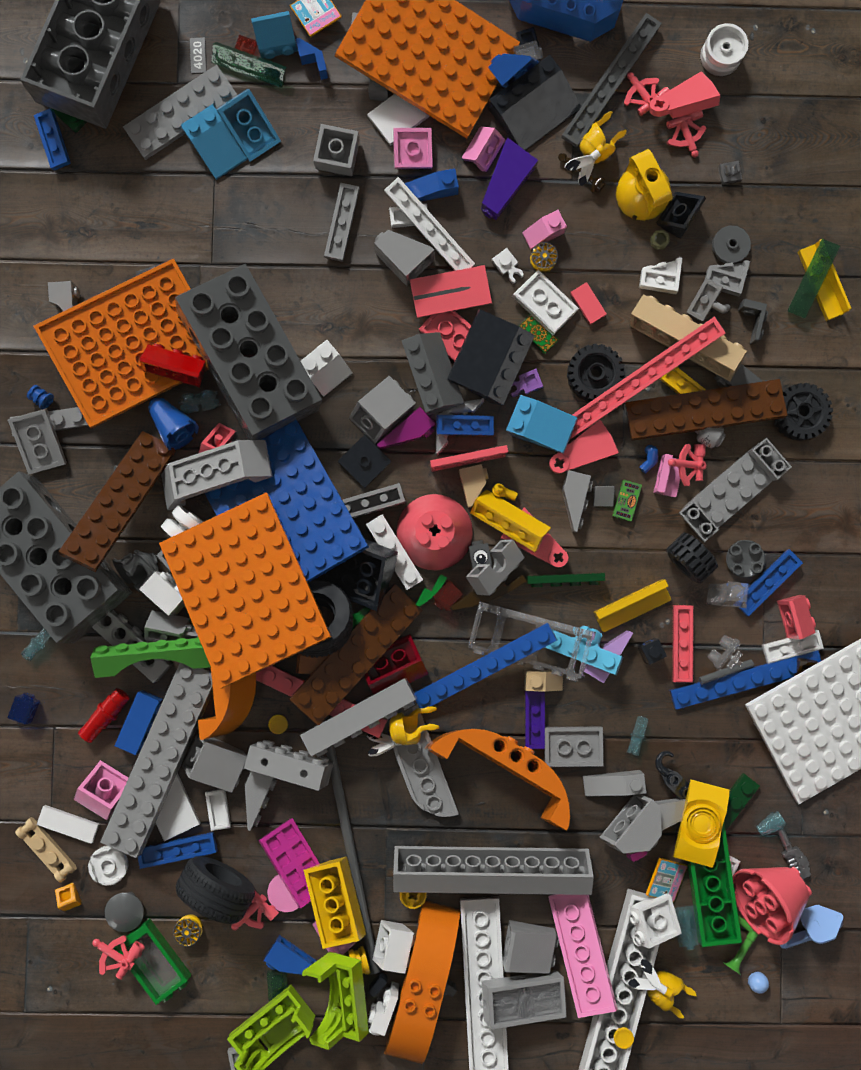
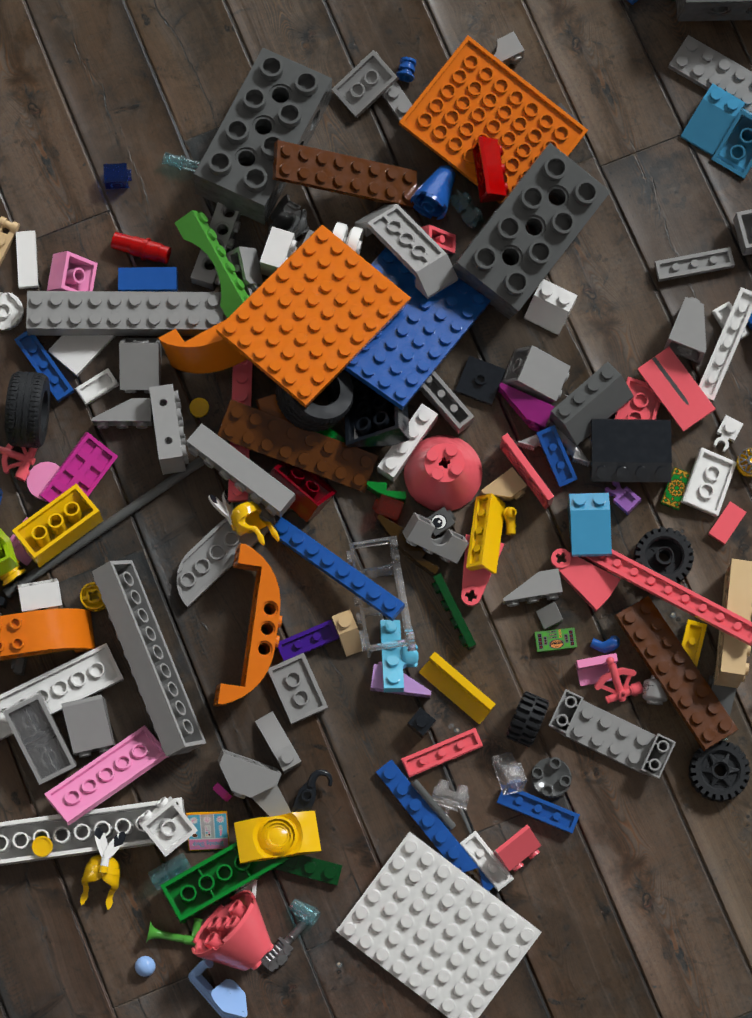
camera: 70 degrees right, 10 degrees down
(637, 735) = (334, 745): clear light blue axle -> none

